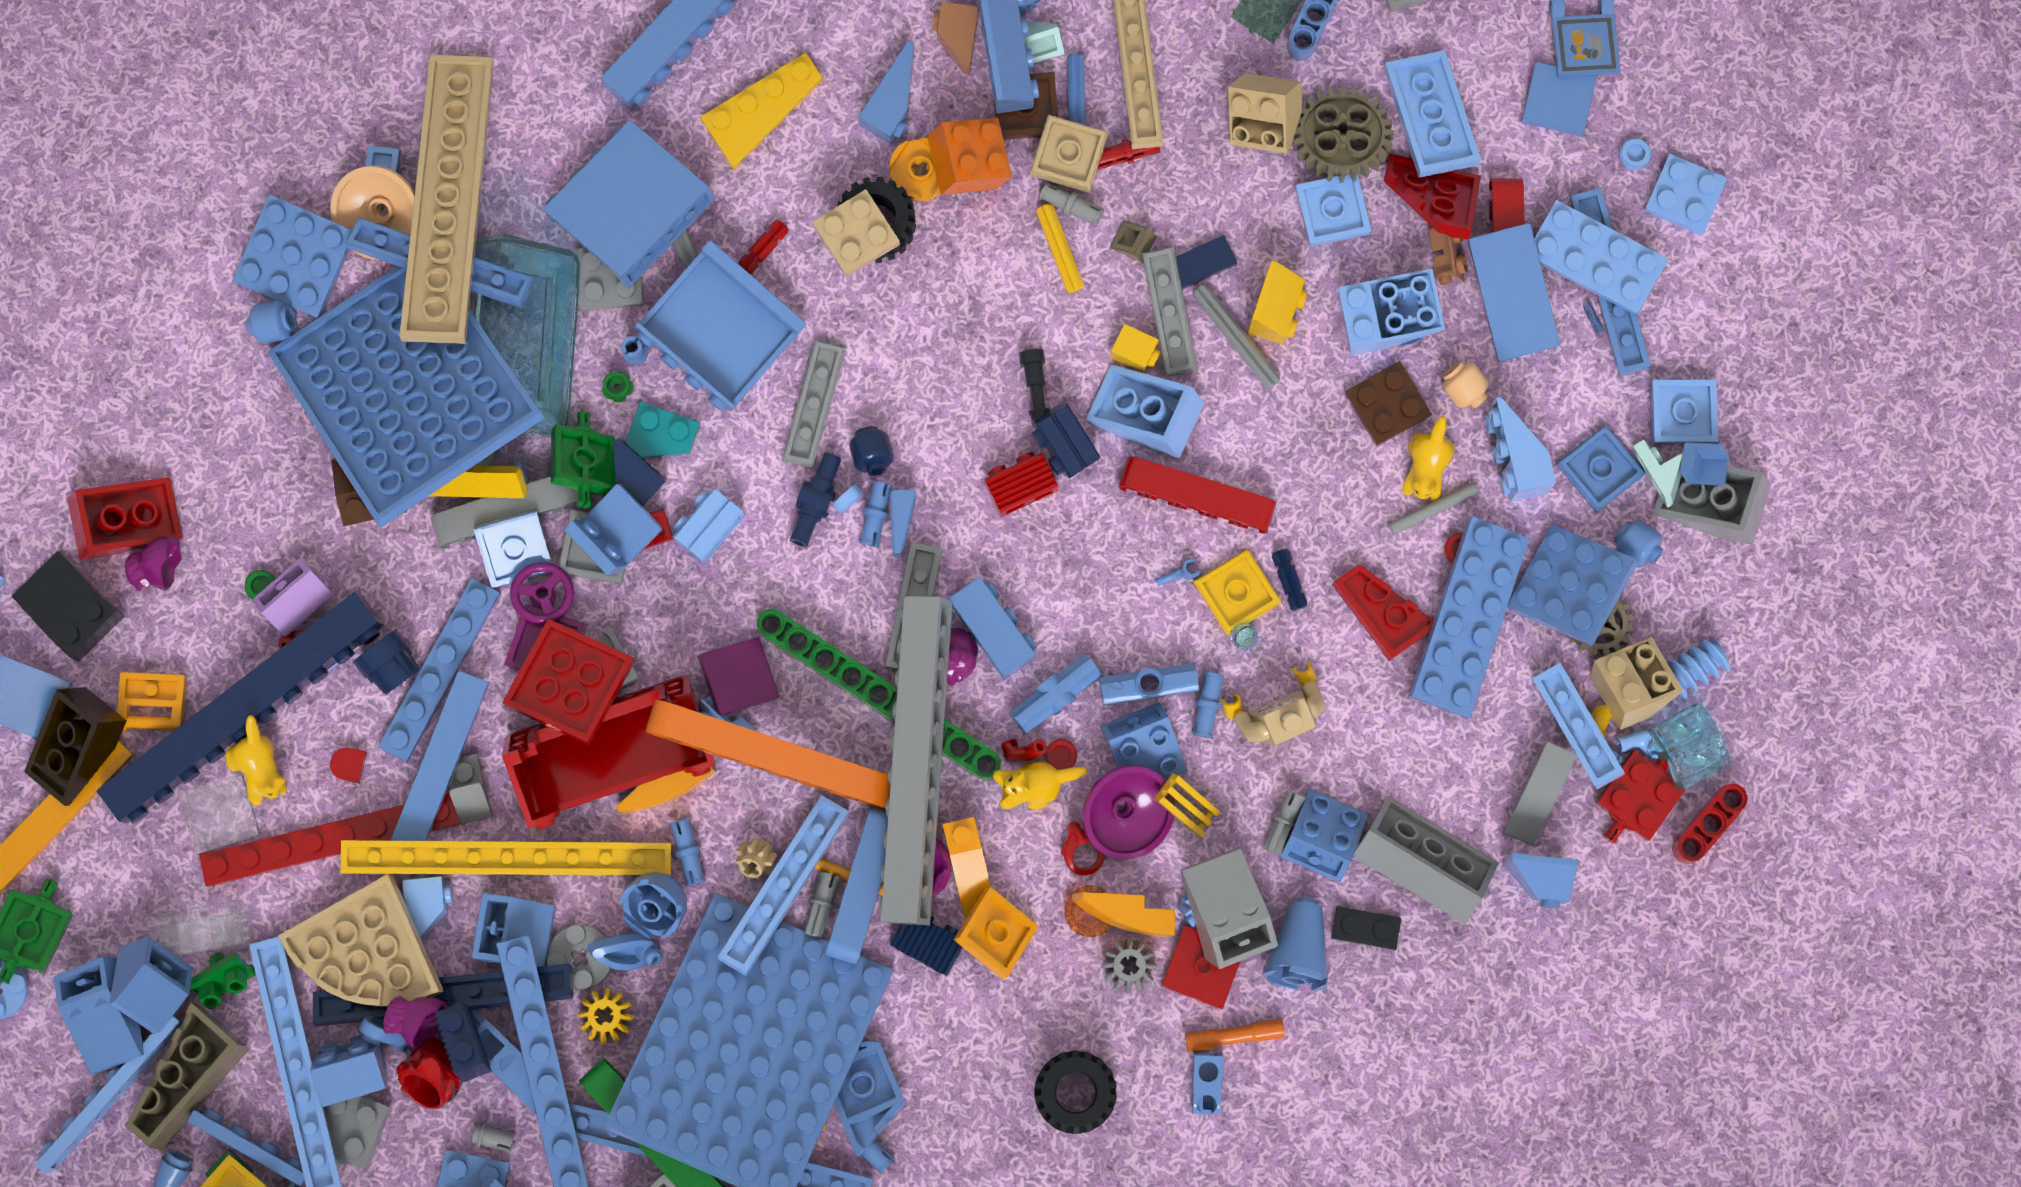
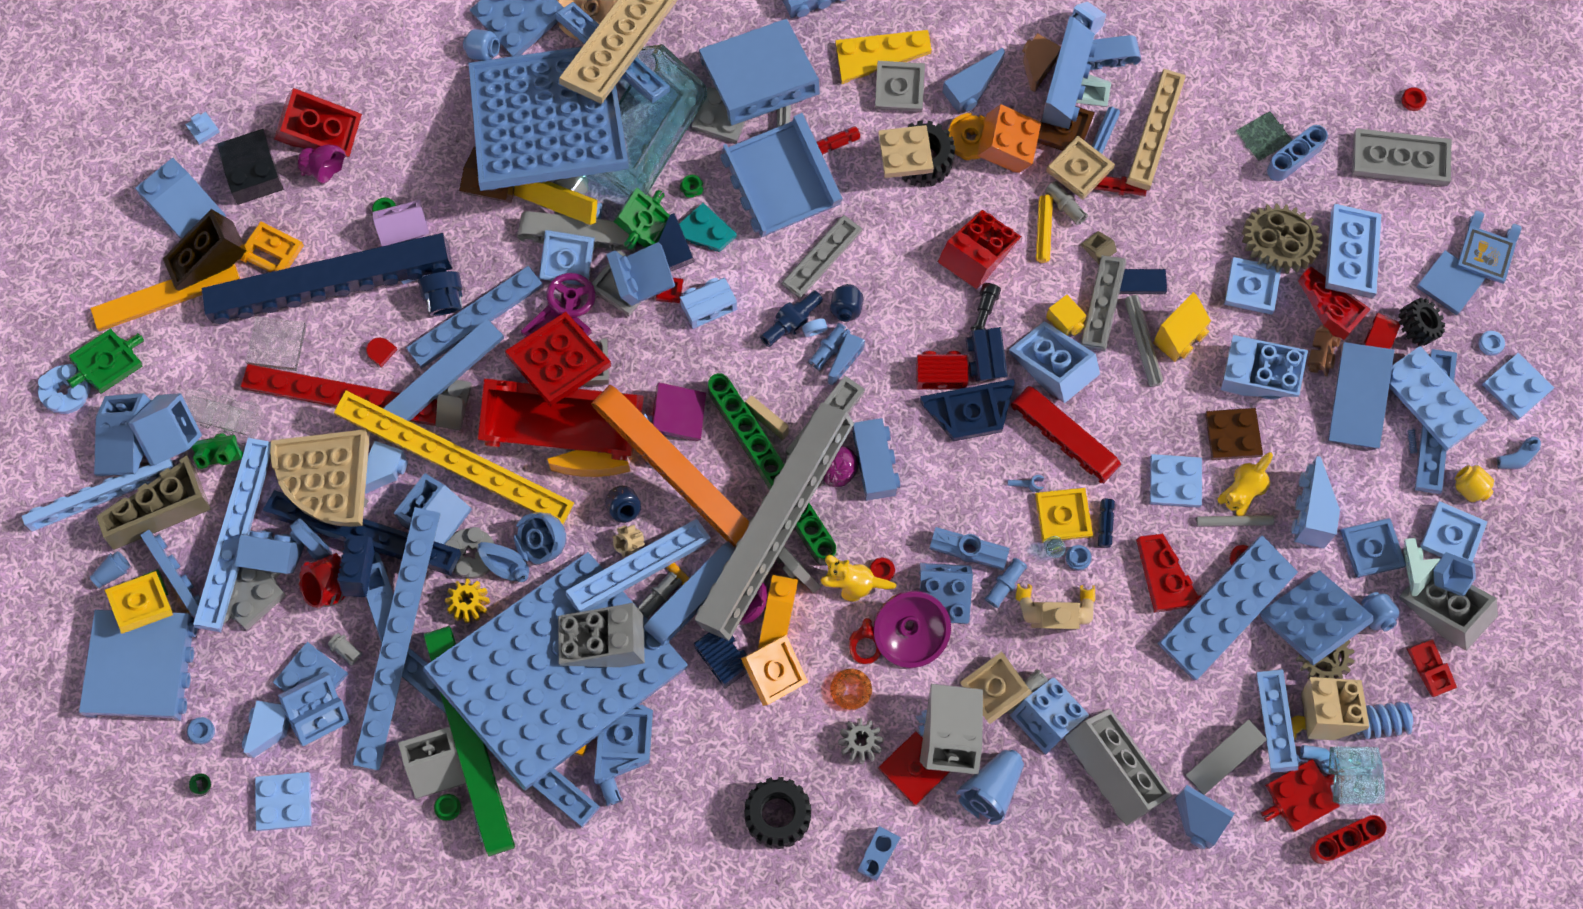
camera: 25 degrees right, 10 degrees down
(256, 760) = (319, 315): yellow animal -> none
(413, 1018) = (329, 534): magenta hair -> none
(636, 357) = (715, 167): medium blue pin -> none
(687, 852) = (582, 515): medium blue pin -> none
(728, 819) = (623, 504): none -> dark blue head
(785, 991) = (602, 637): none -> light grey slope
(806, 143) = (899, 86): none -> light grey plate
(844, 635) = (767, 417): none -> tan tile
(964, 804) = (794, 568): none -> light grey wing
(994, 309) = (978, 248): none -> red slope
(1026, 753) = (856, 556): red arm -> none
(1055, 694) = (898, 524): medium blue piece -> none
(1076, 515) = (971, 410): none -> dark blue wing
(1127, 913) = (877, 700): light orange slope -> none
(1204, 819) = (967, 642): yellow tile -> none
(1254, 829) = (1000, 685): none -> tan plate
(1254, 1032) = (931, 833): orange piece -> none
(1264, 112) = (1232, 198): tan slope -> none
(1276, 635) = (1078, 557): none -> medium blue plate
(1346, 491) = (1175, 480): none -> light blue plate
(1366, 928) = (1050, 796): black plate -> none
(1465, 384) = (1297, 444): light nougat head -> none
(1537, 177) = (1421, 321): none -> black tyre
(1683, 339) = (1474, 483): none -> yellow head
(1721, 581) = (1431, 669): none -> red slope
(1724, 280) = (1522, 457): none -> medium blue arm

